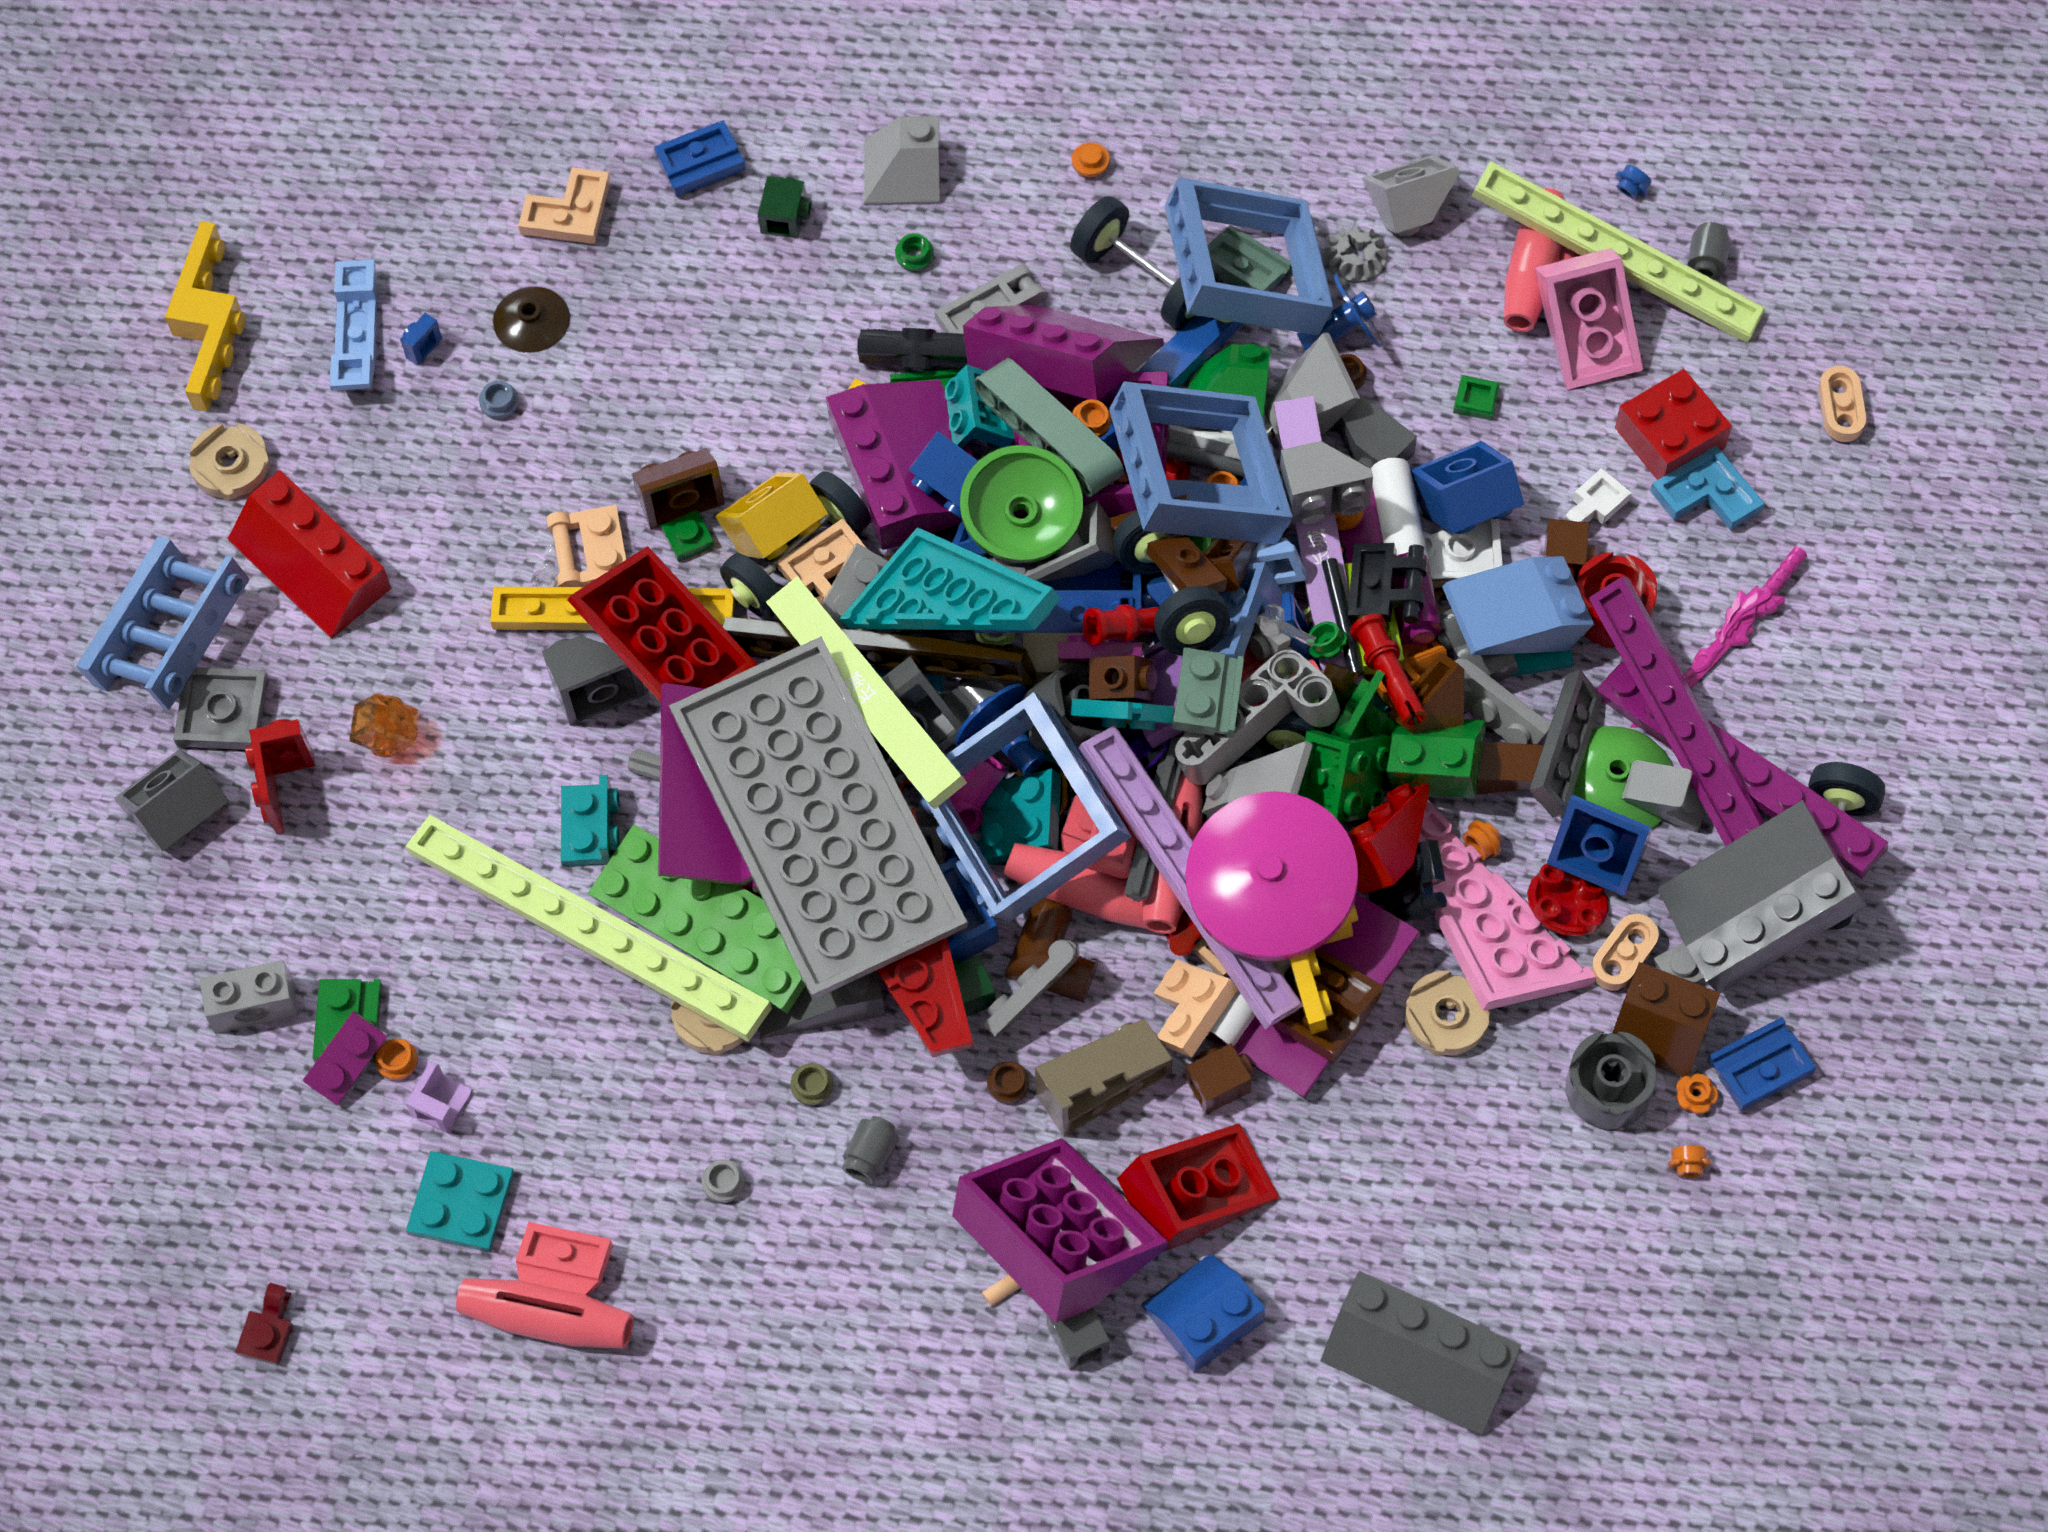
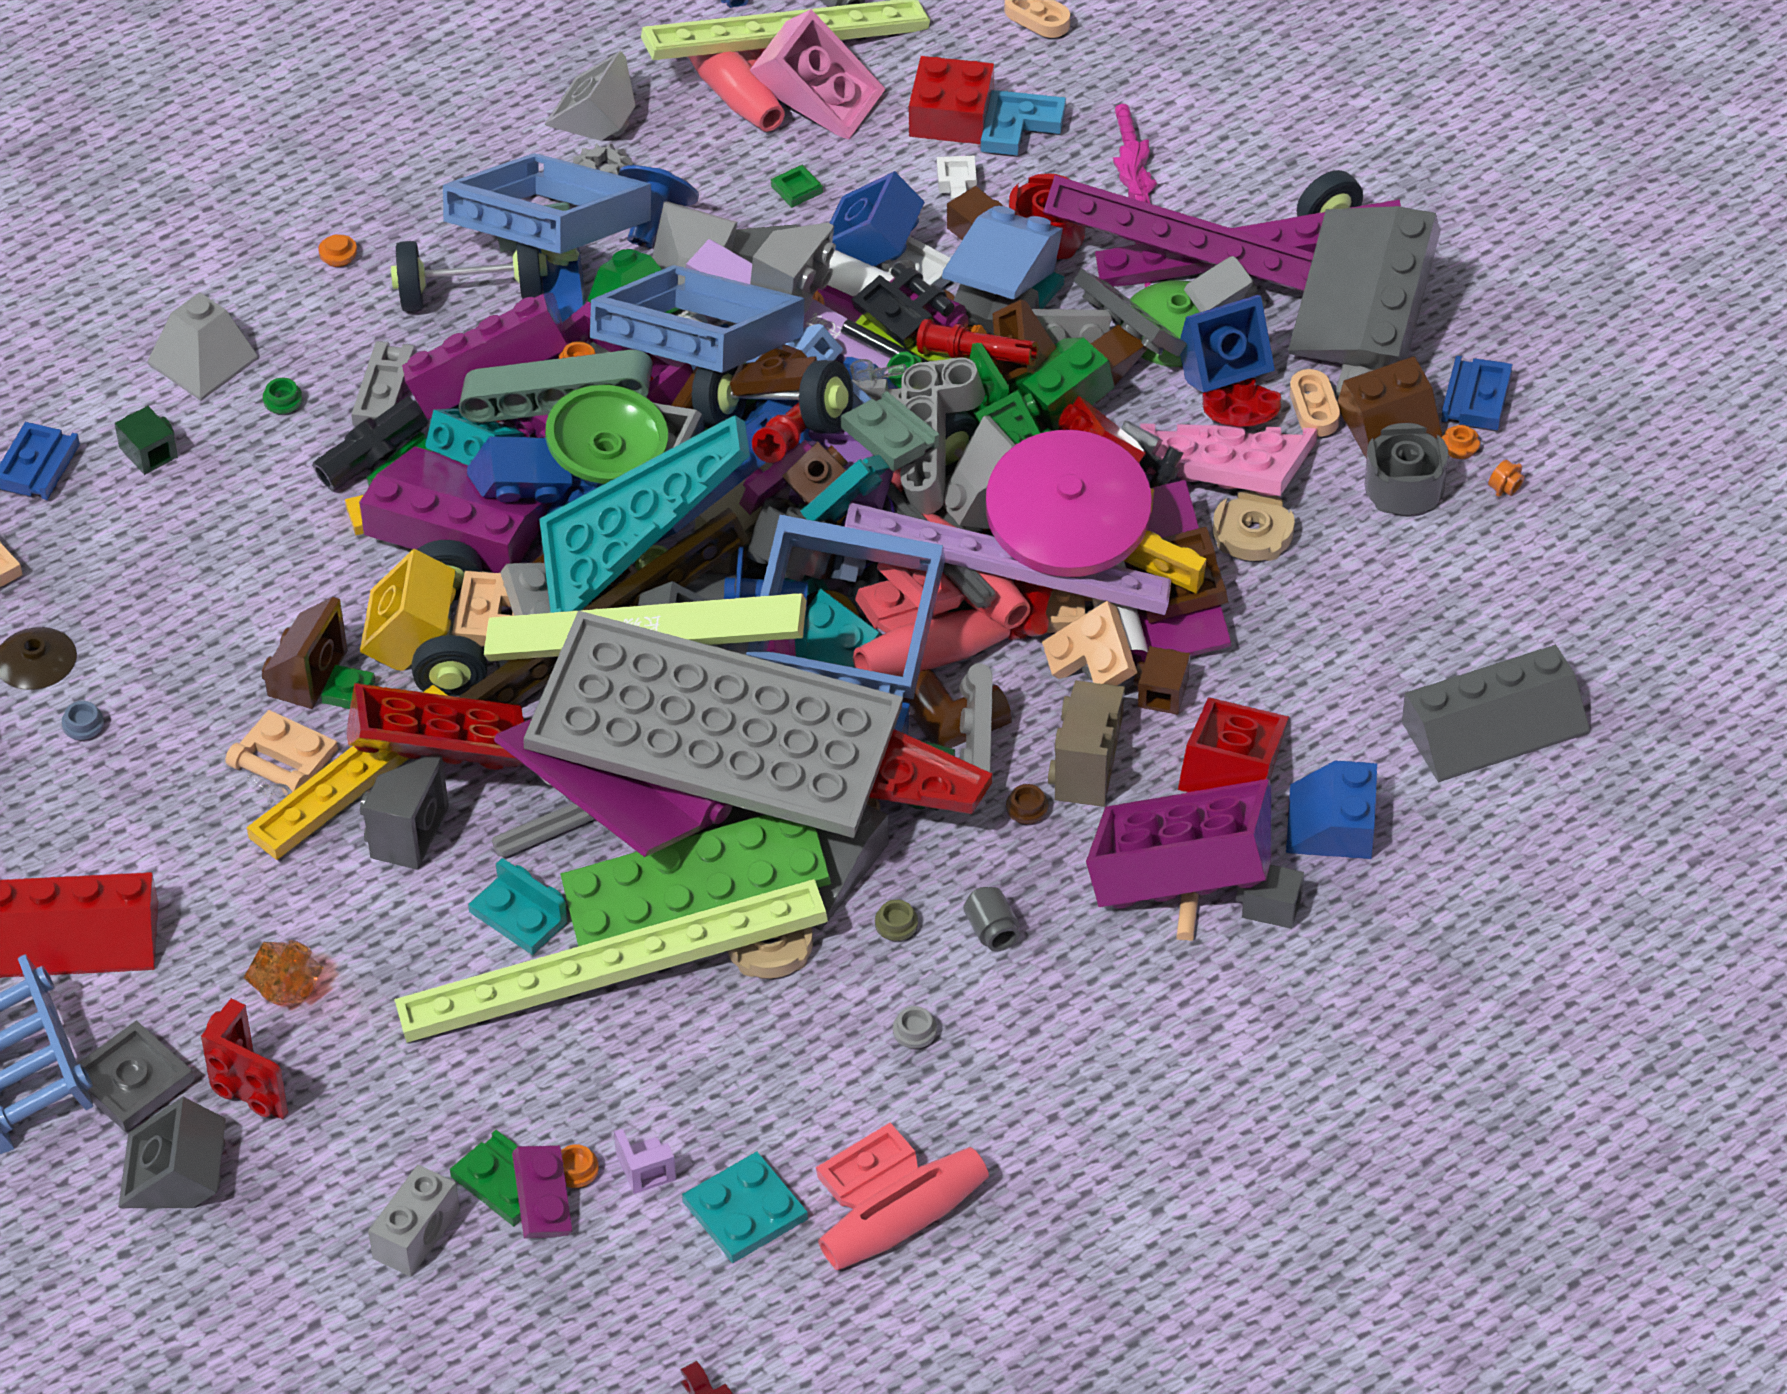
camera: 50 degrees left, 15 degrees down
(1483, 838) = (1146, 411): orange plate -> none

